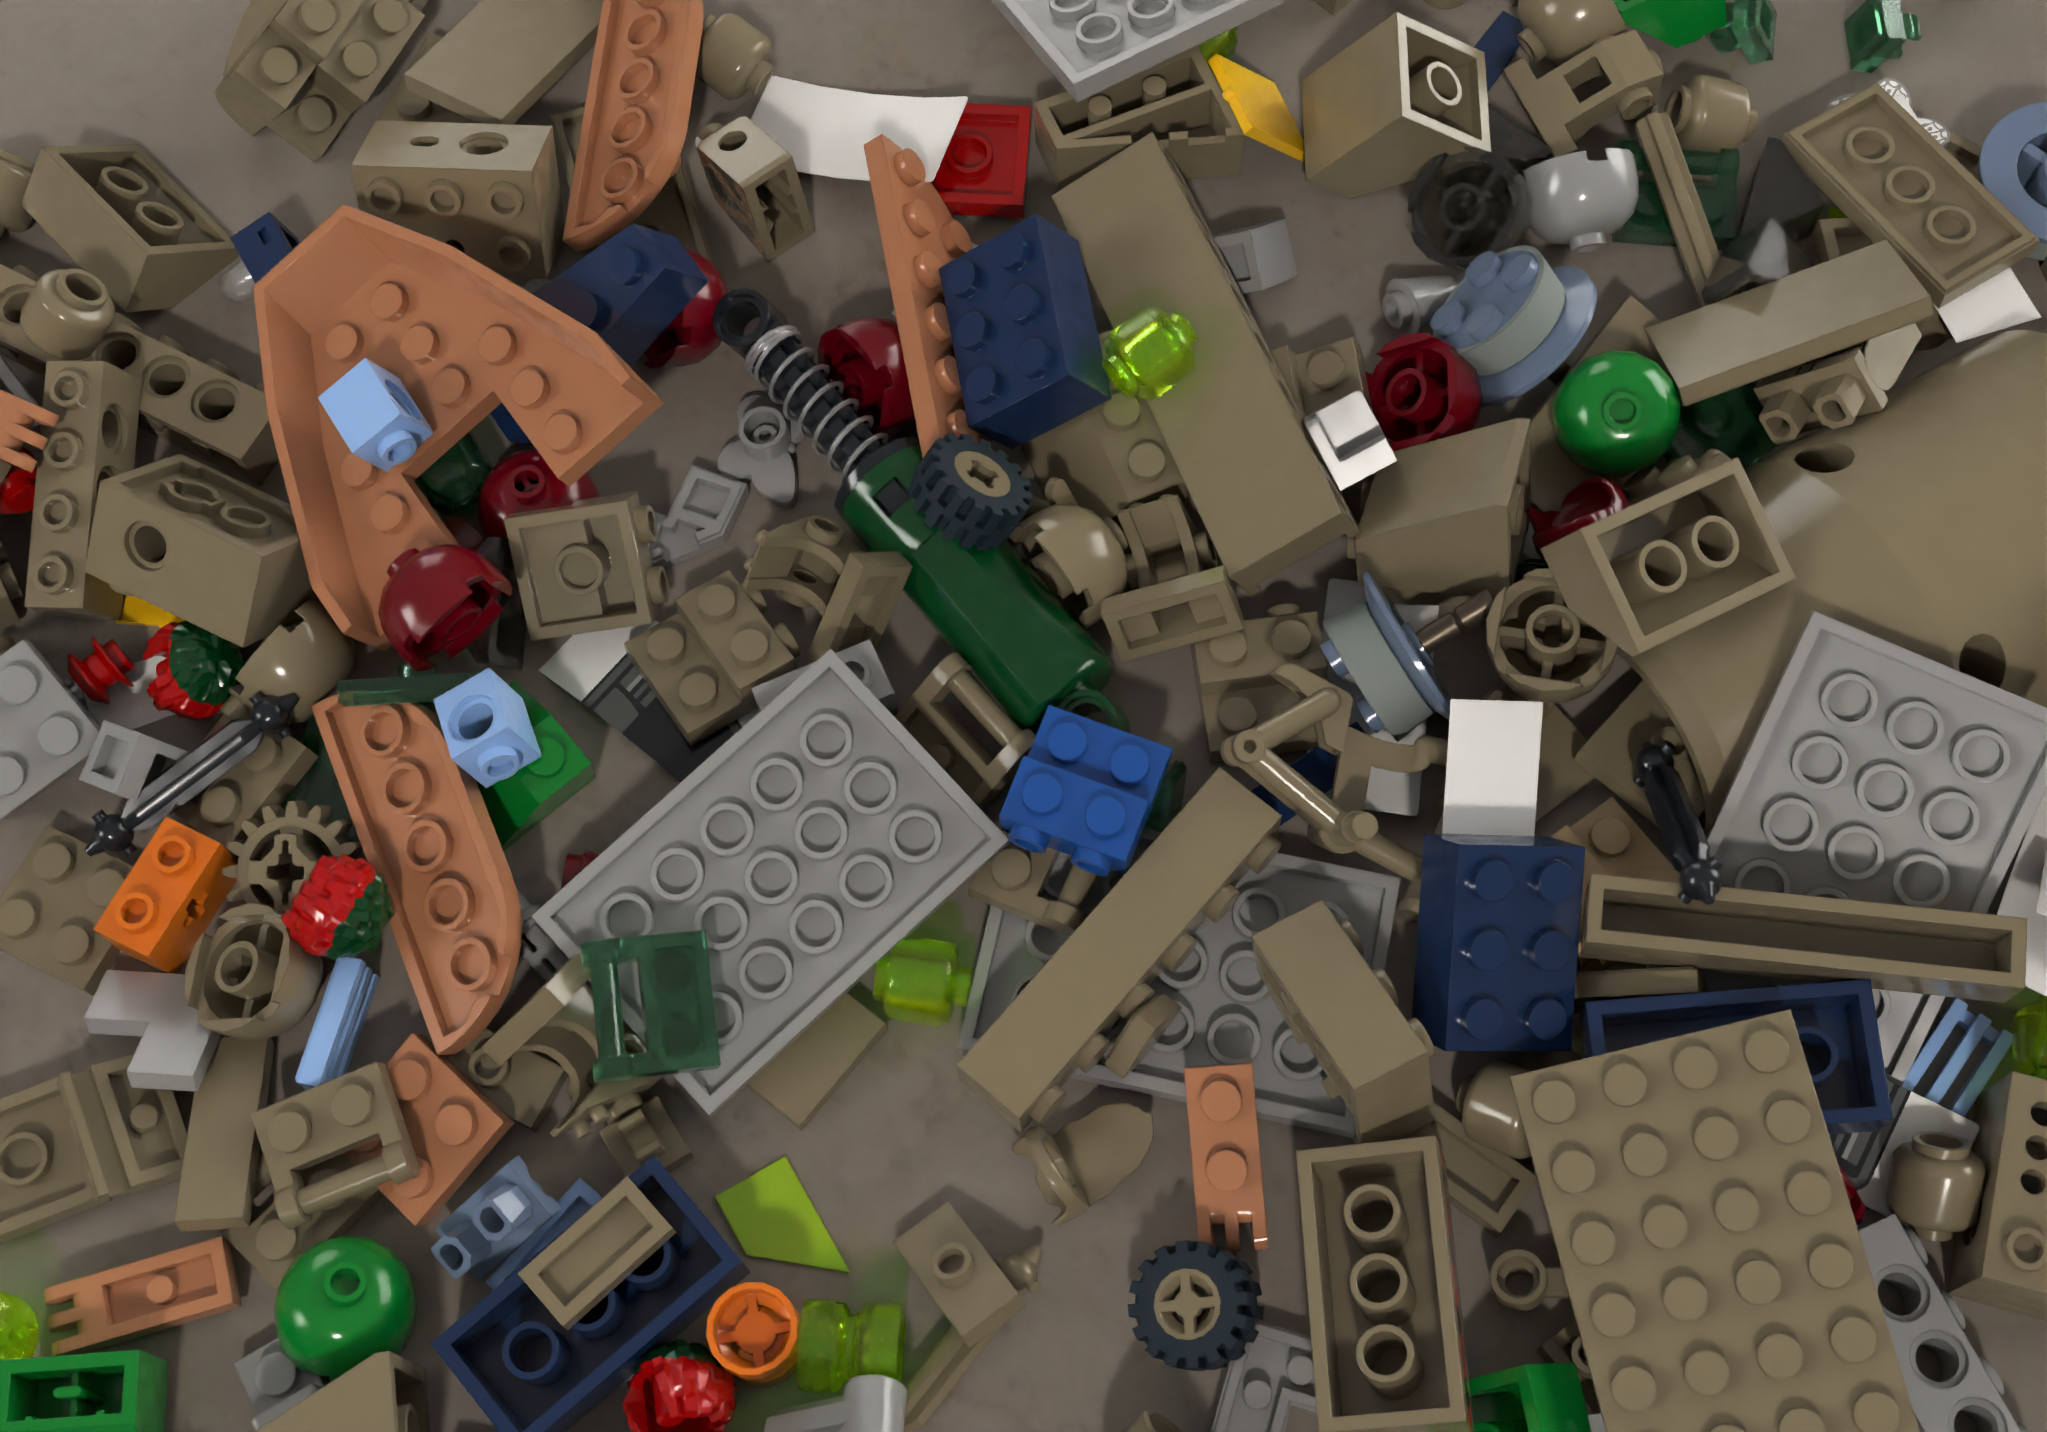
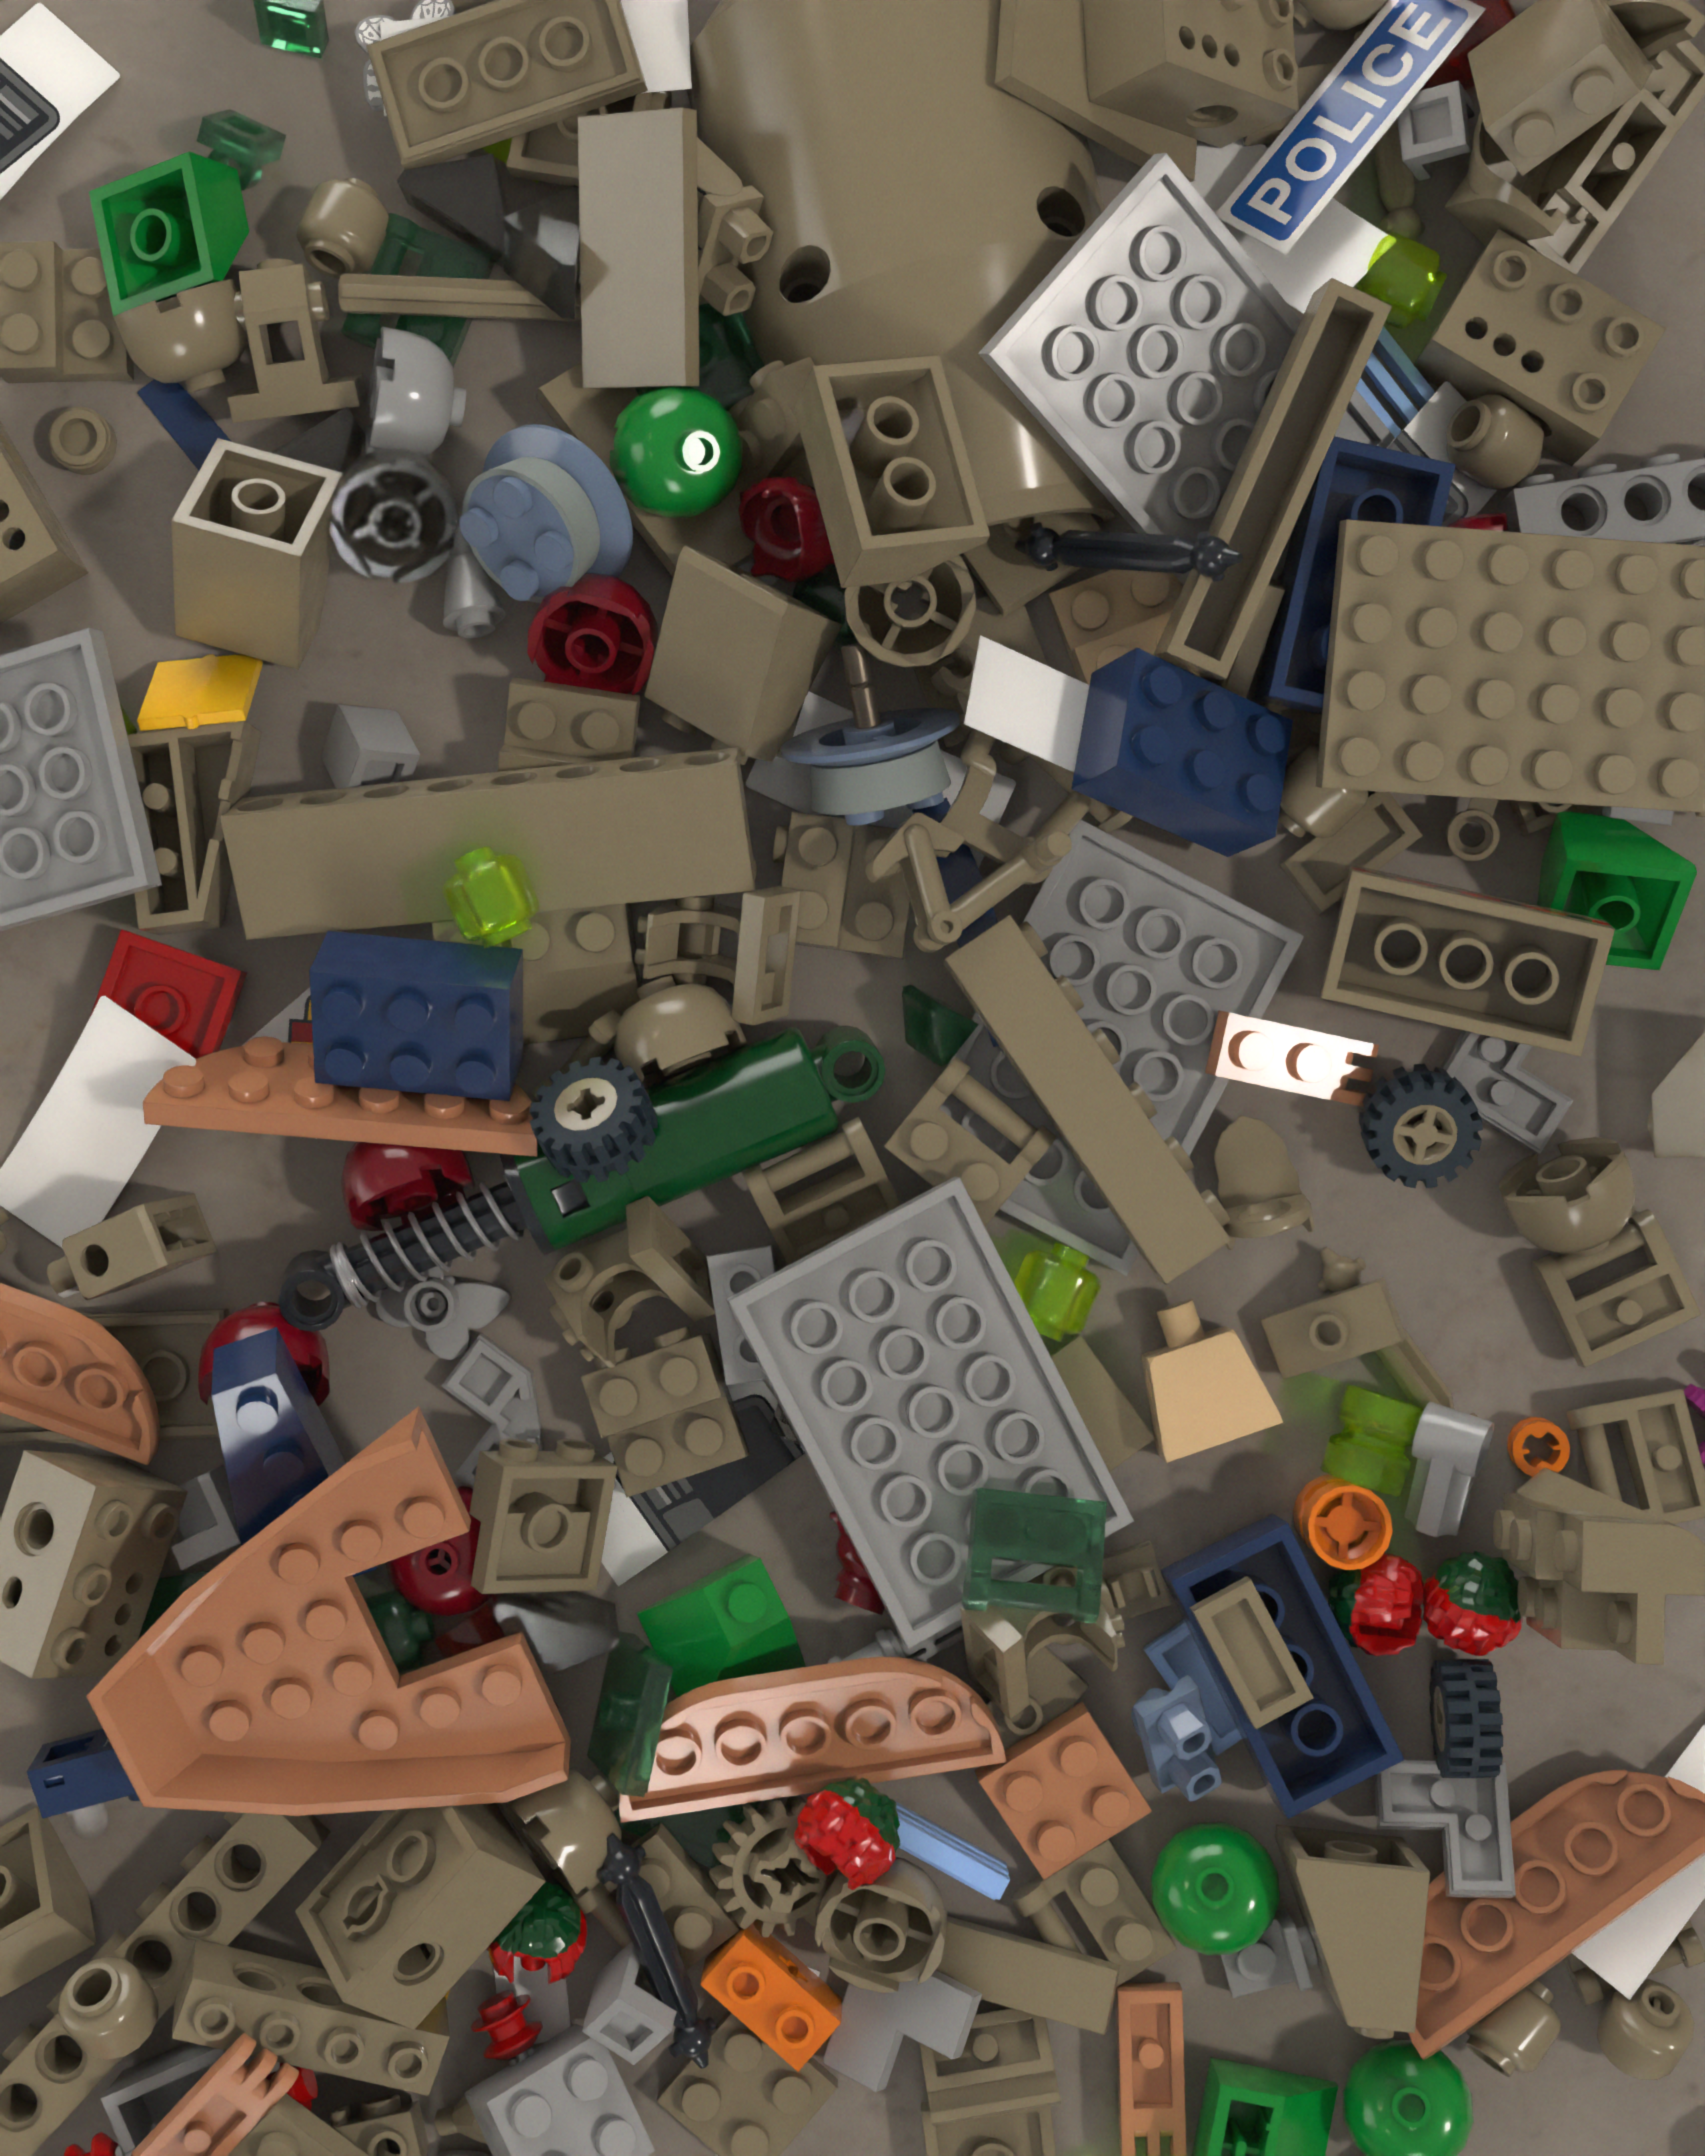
camera: 75 degrees left, 20 degrees up
(327, 1124) = (1047, 1878): dark tan plate -> none
(375, 415) = (344, 1704): light blue brick -> none
(439, 601) = (563, 1679): dark red cylinder -> none
(487, 728) = (696, 1673): light blue brick -> none
(778, 1219) = (1228, 1477): lime sticker -> none
(864, 1155) = (1202, 1386): none -> tan torso
(1084, 792) = (933, 1092): blue plate -> none
(1141, 1034) = (1170, 1102): dark tan tile -> none
(1349, 1022) = (1214, 914): dark tan wedge -> none
(1350, 439) = (636, 725): panel -> none

